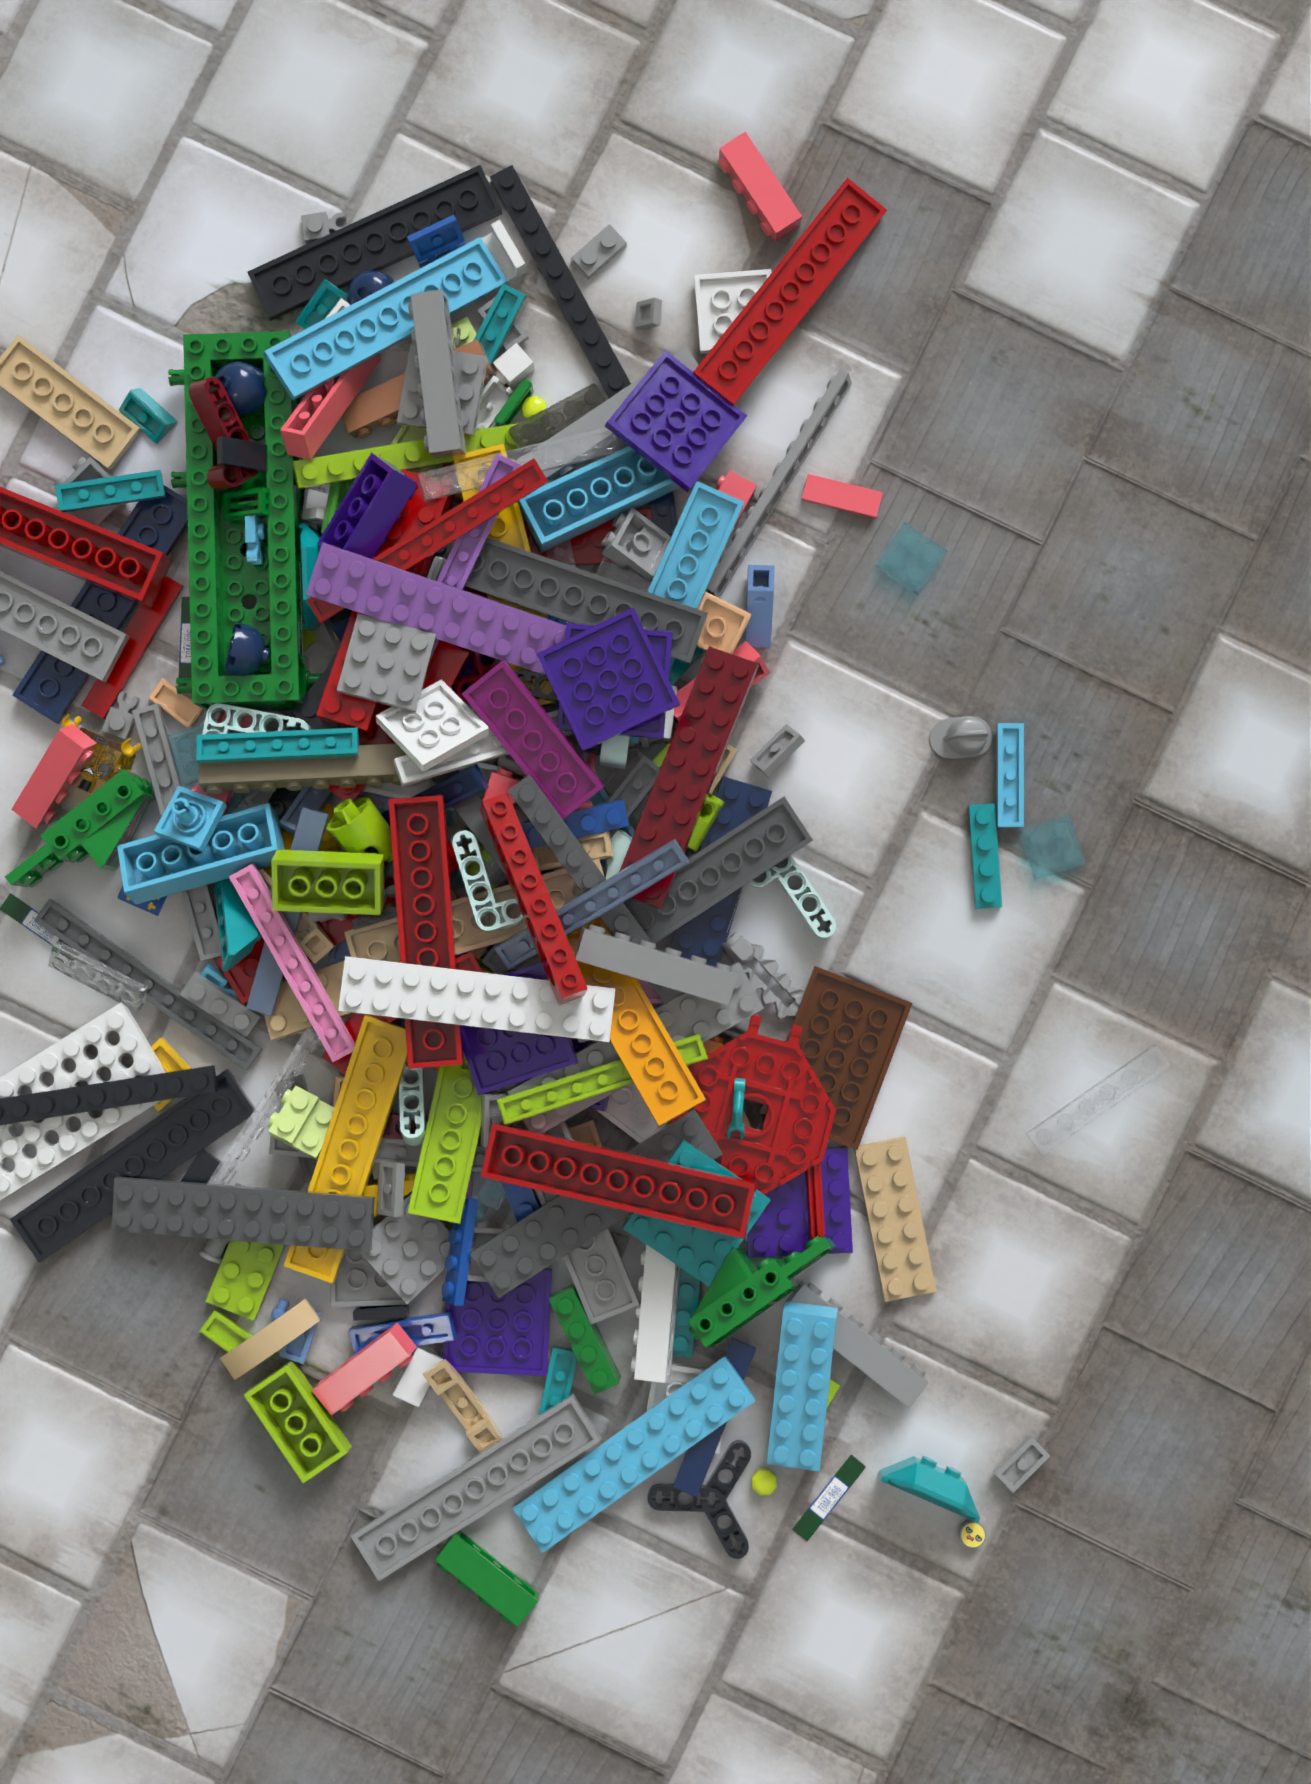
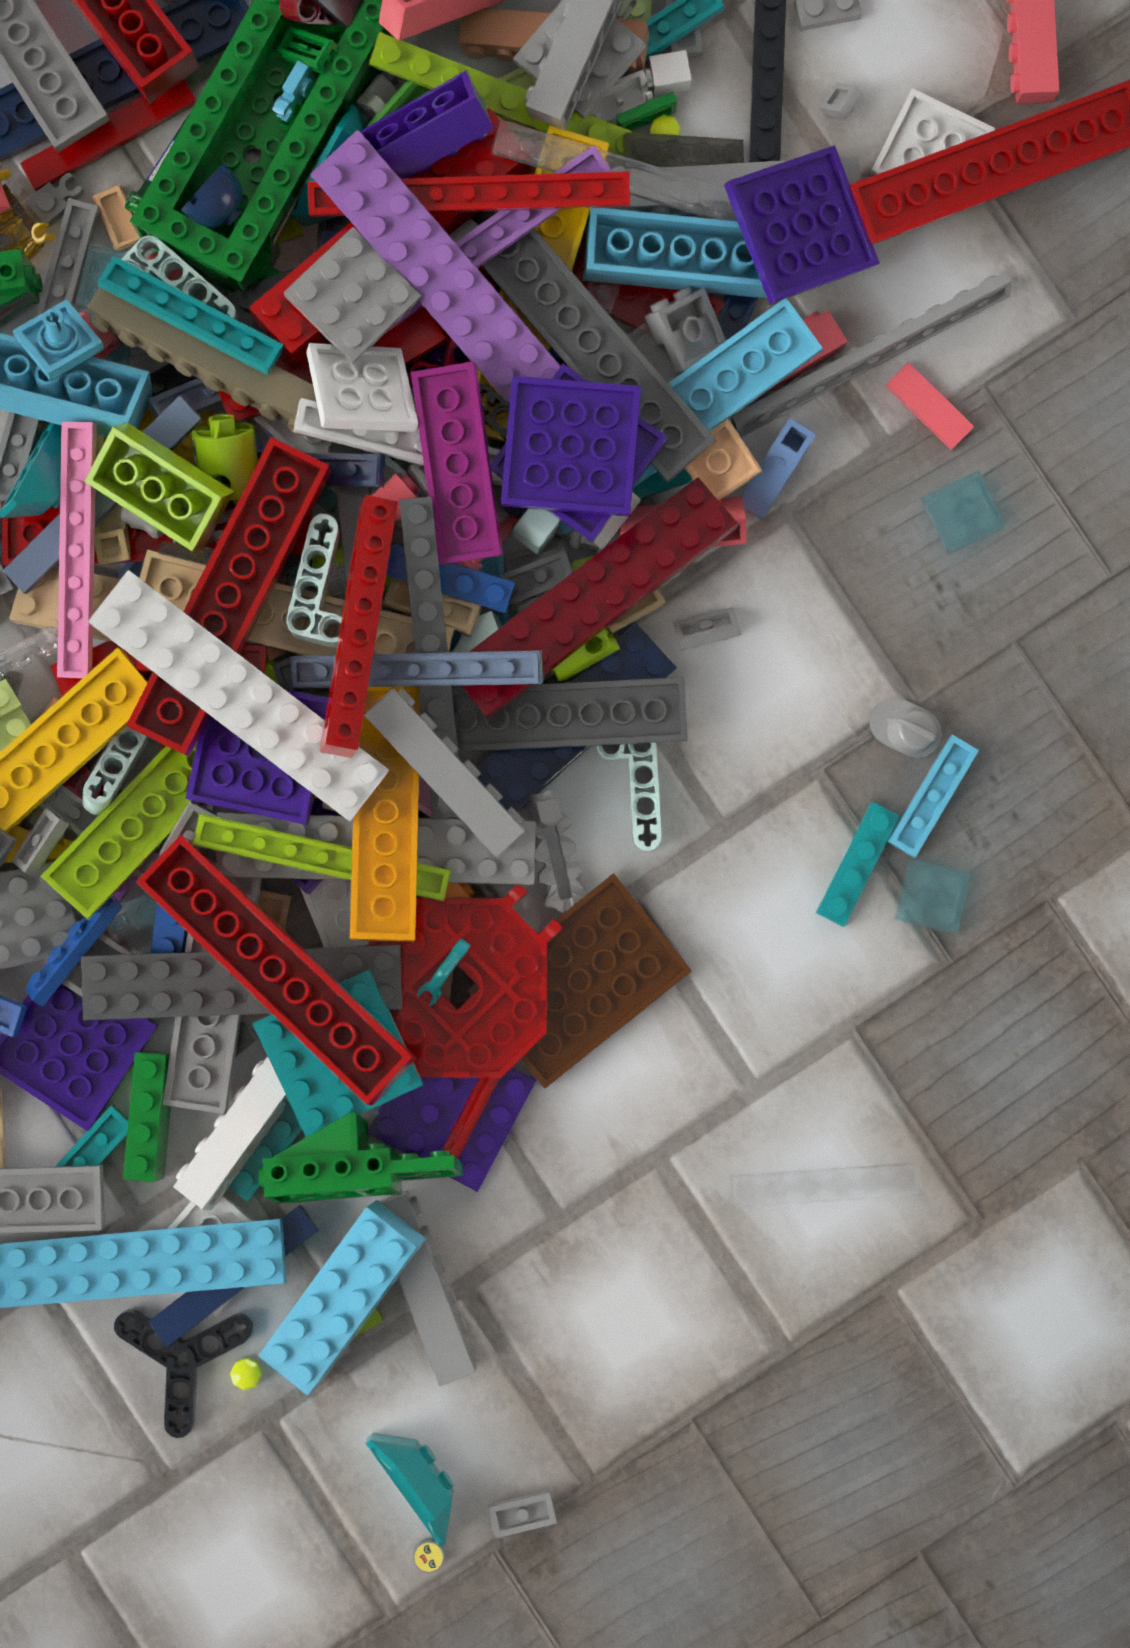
camera: 30 degrees right, 0 degrees up
(829, 1497) = (303, 1430): sticker -> none
(895, 1219) = (542, 1183): tan plate -> none

